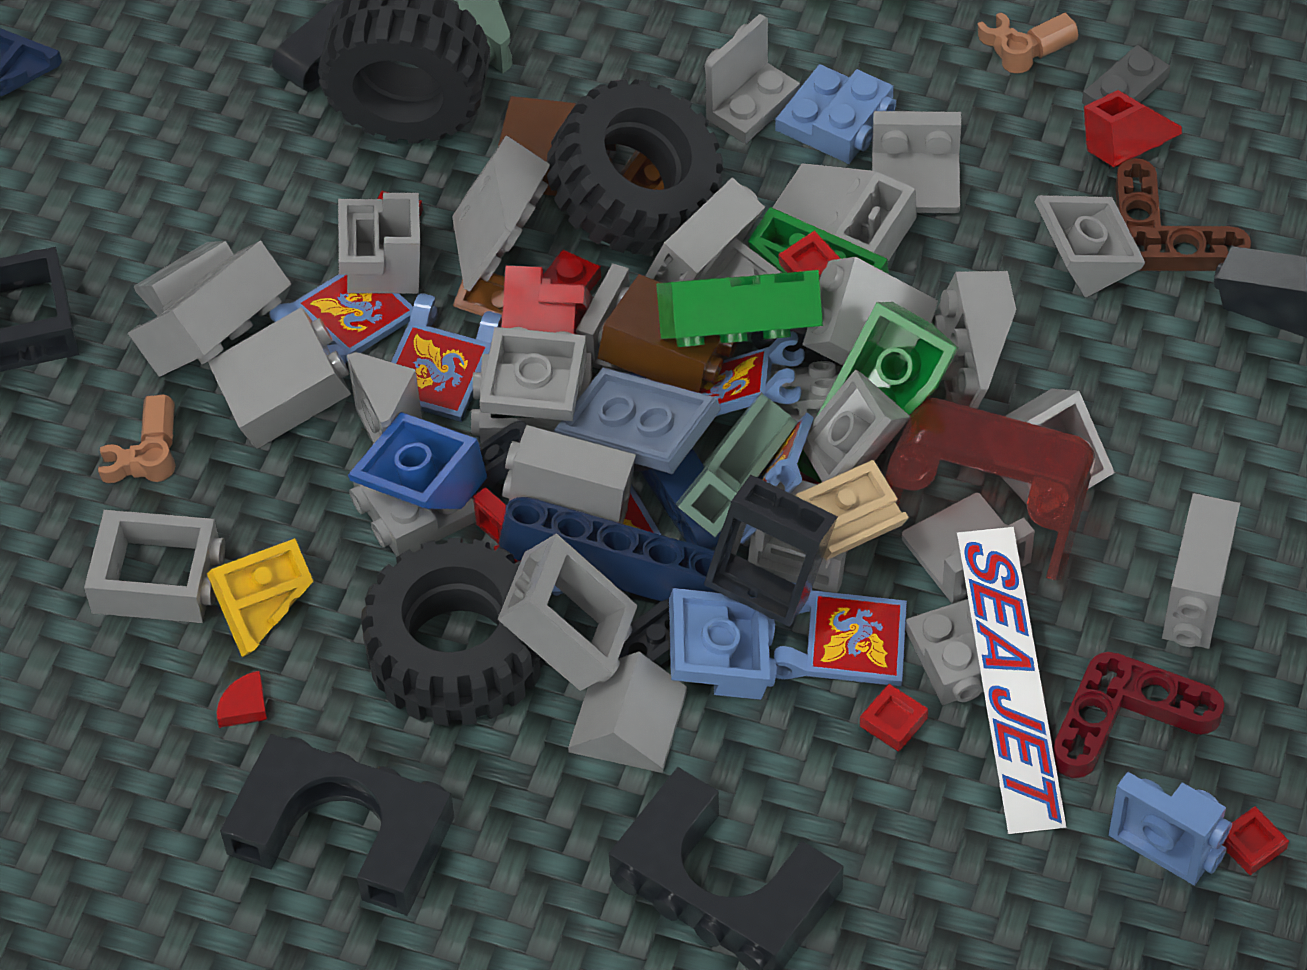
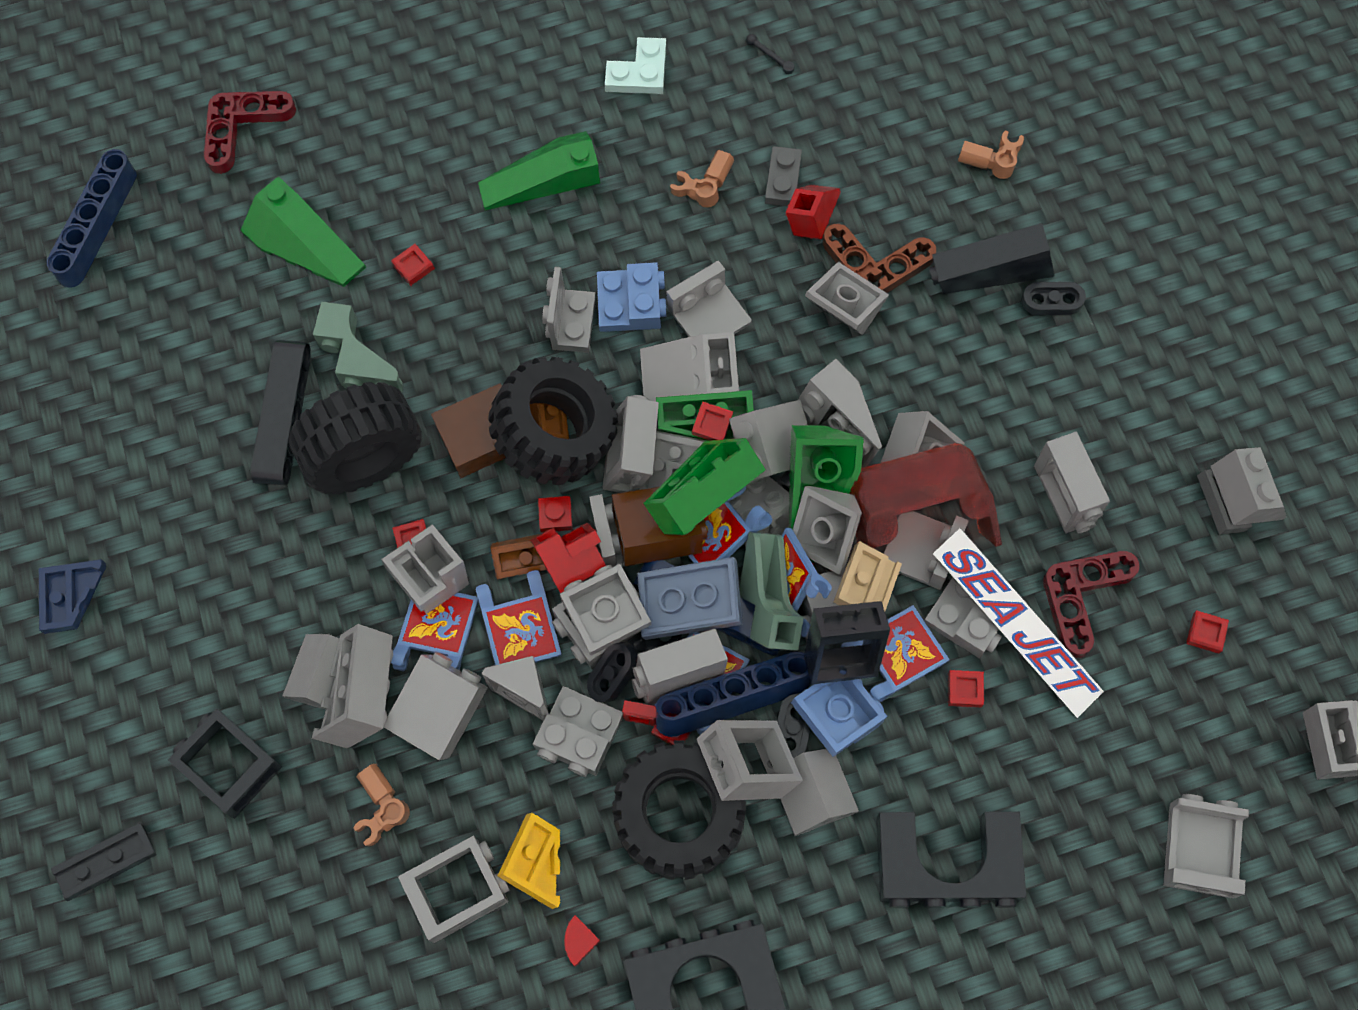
camera: 35 degrees left, 15 degrees up
(422, 464) = (581, 719): blue slope -> none
(497, 209) = (490, 505): light grey slope -> none
(1174, 831) = (1183, 659): medium blue plate -> none

